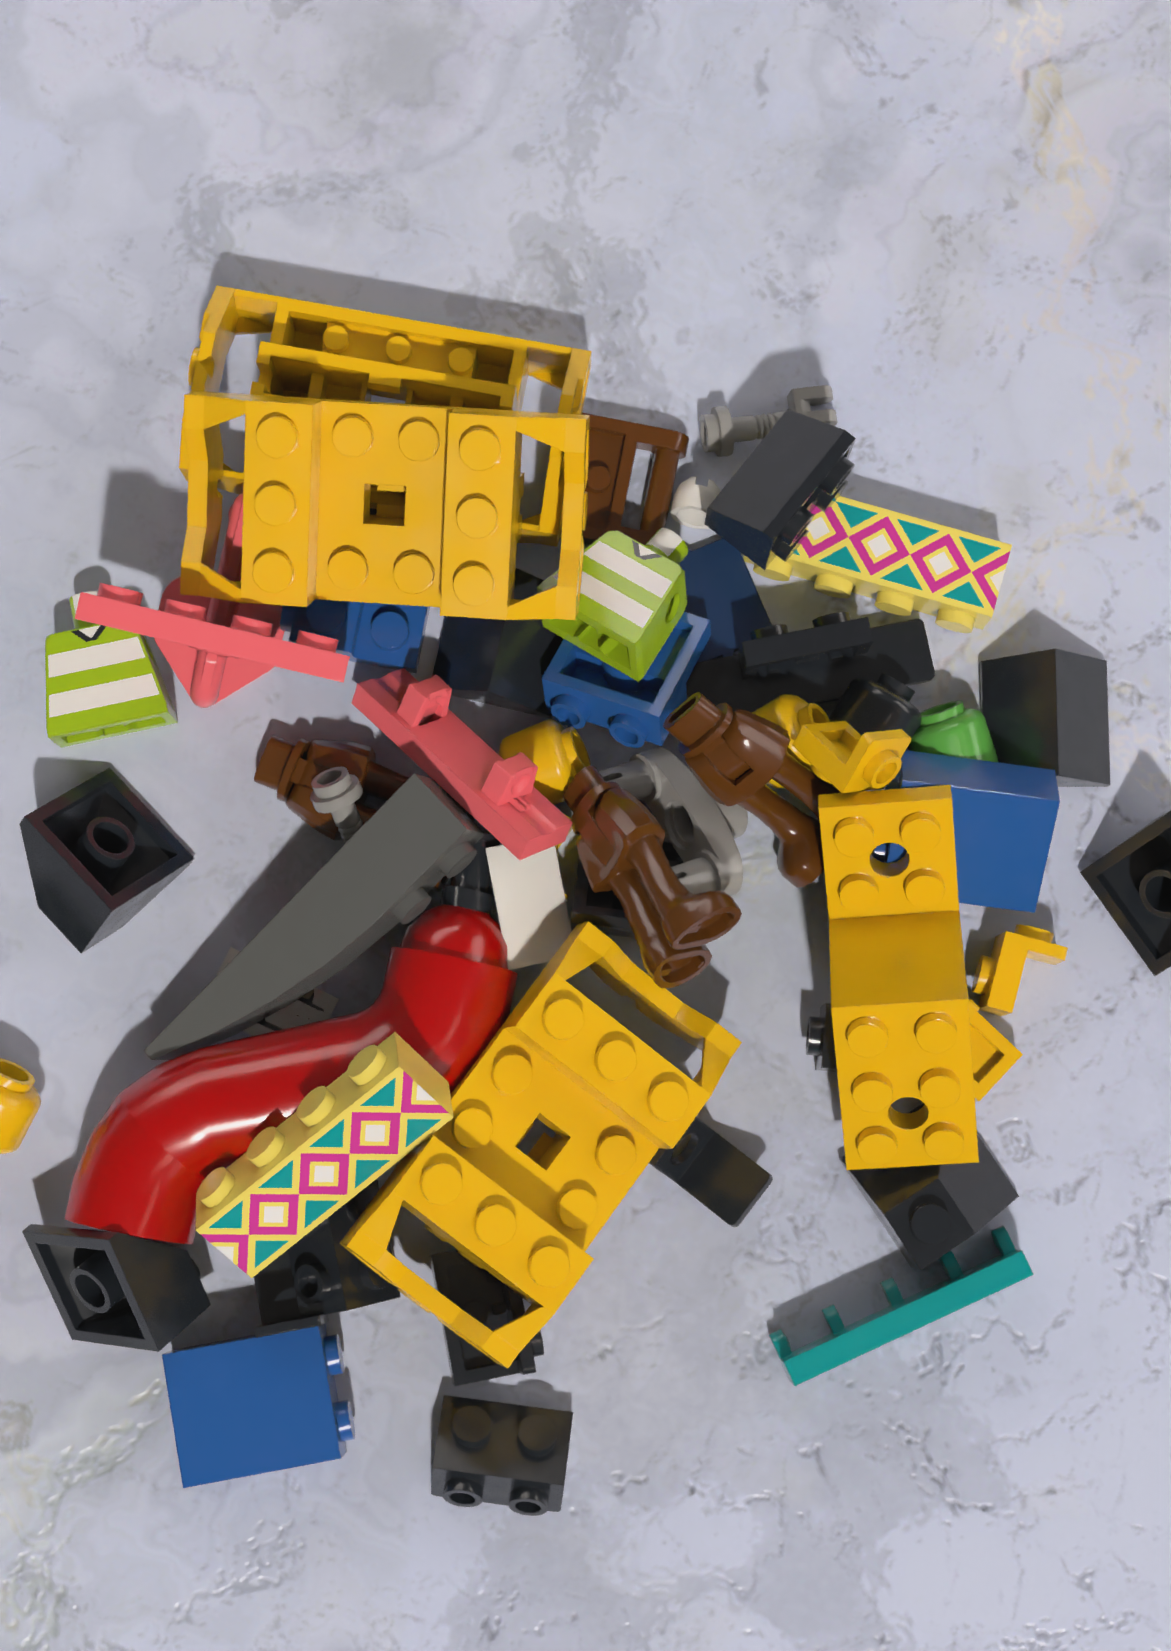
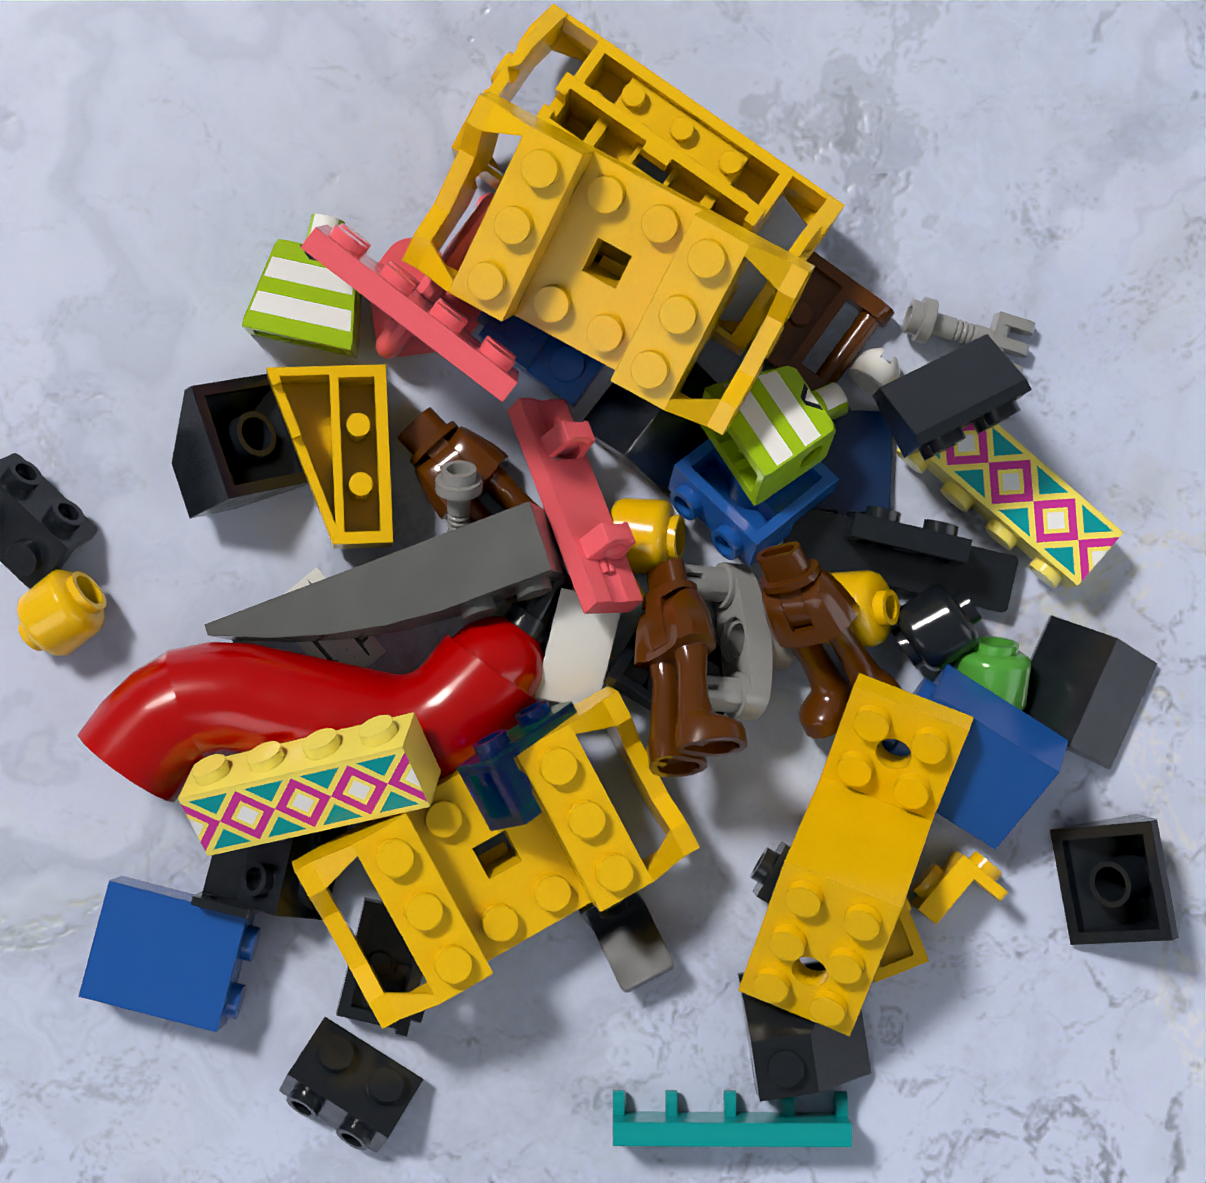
camera: 25 degrees right, 5 degrees up
(118, 1285) = (99, 810): black slope -> none
(202, 811) = (343, 446): none -> yellow wedge
(505, 1059) = (492, 774): none -> bracket
(852, 760) = (899, 655): yellow bracket -> none

